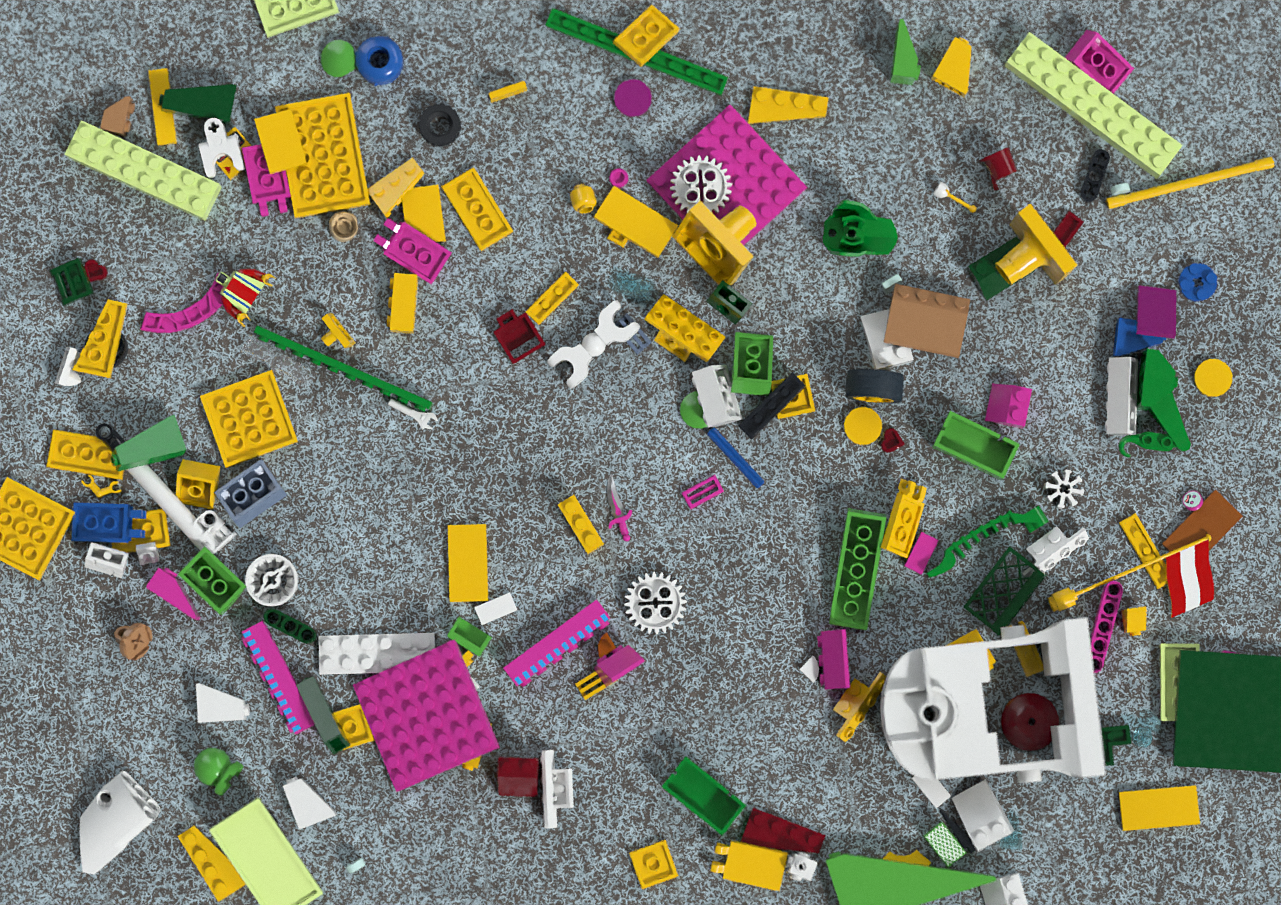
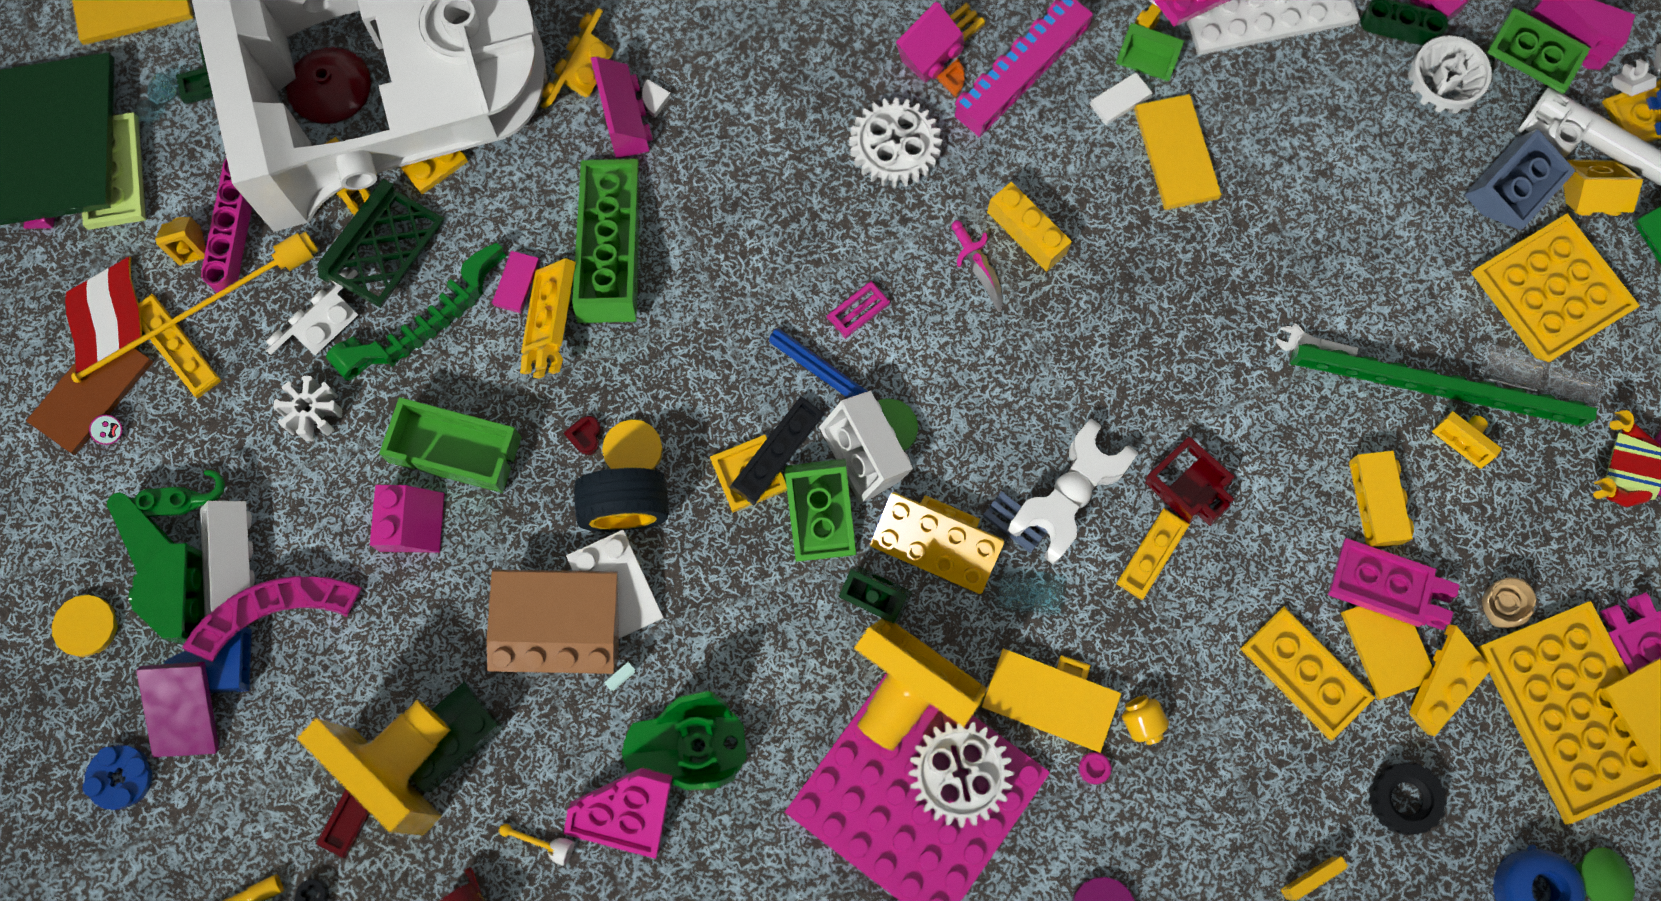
camera: 170 degrees right, 10 degrees down
(901, 202) = (623, 813): none -> dark pink plate
(1097, 367) = (266, 599): none -> dark pink tile

